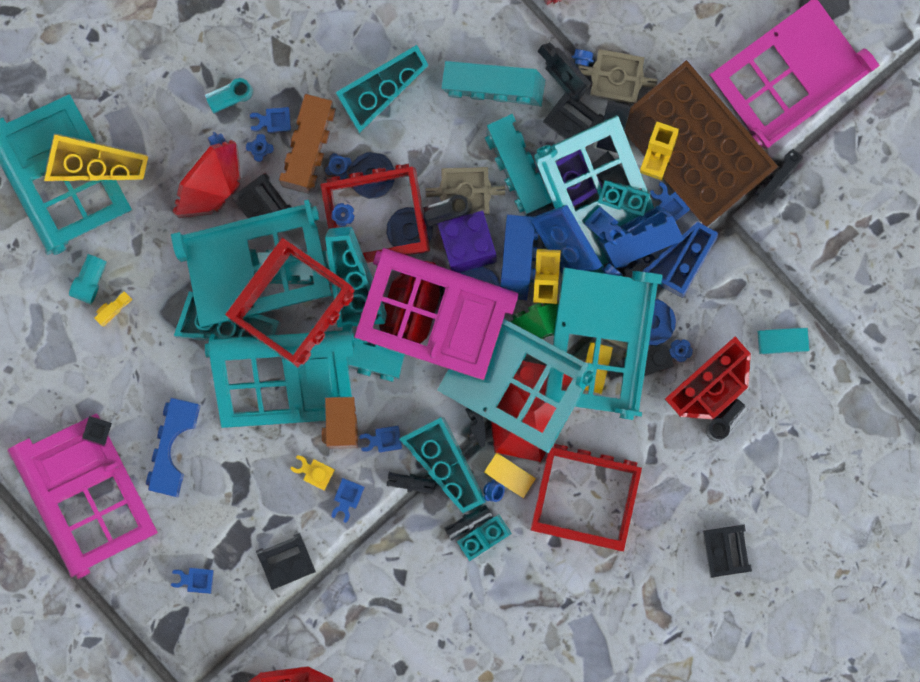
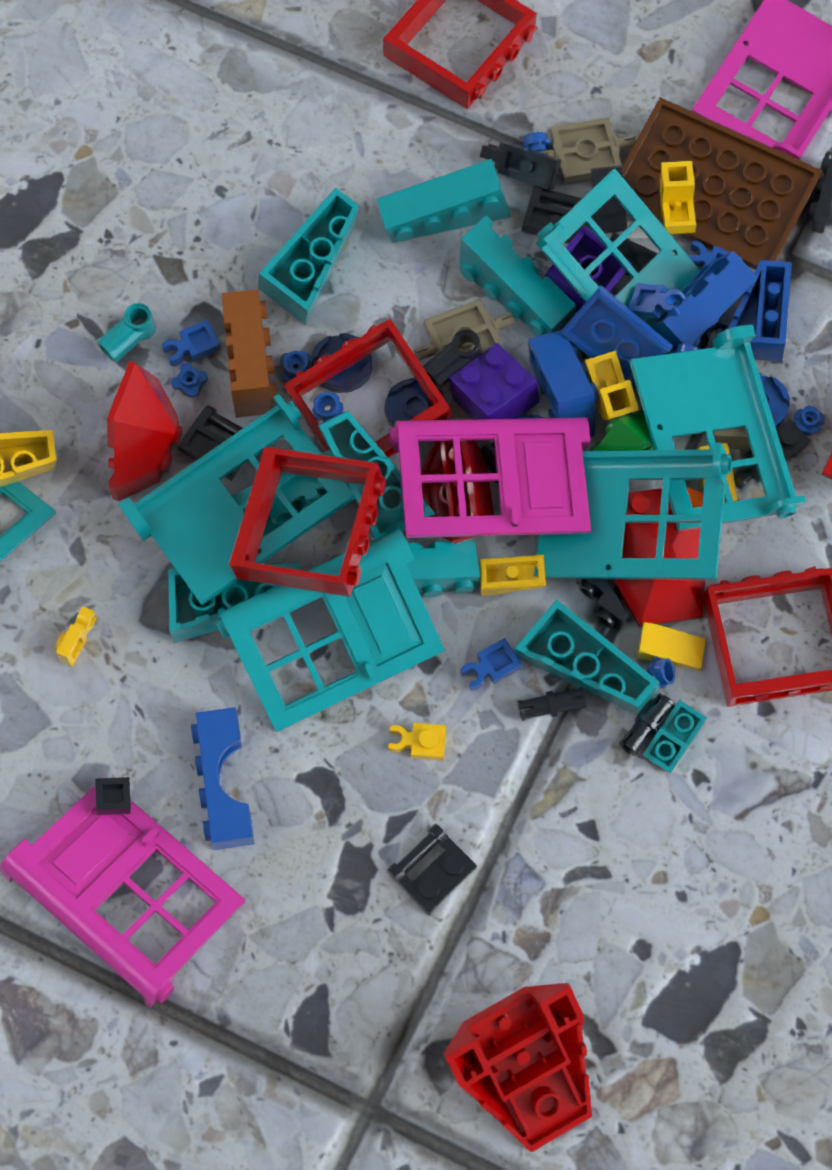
camera: 20 degrees left, 15 degrees down
(86, 284) = (30, 621): teal piece -> none
(198, 580) = (325, 940): blue plate -> none
(341, 423) = (435, 654): dark orange wedge -> none
(348, 496) = (478, 752): blue plate -> none
(422, 382) = (511, 574): none -> yellow slope
(624, 197) = (662, 264): teal slope -> none

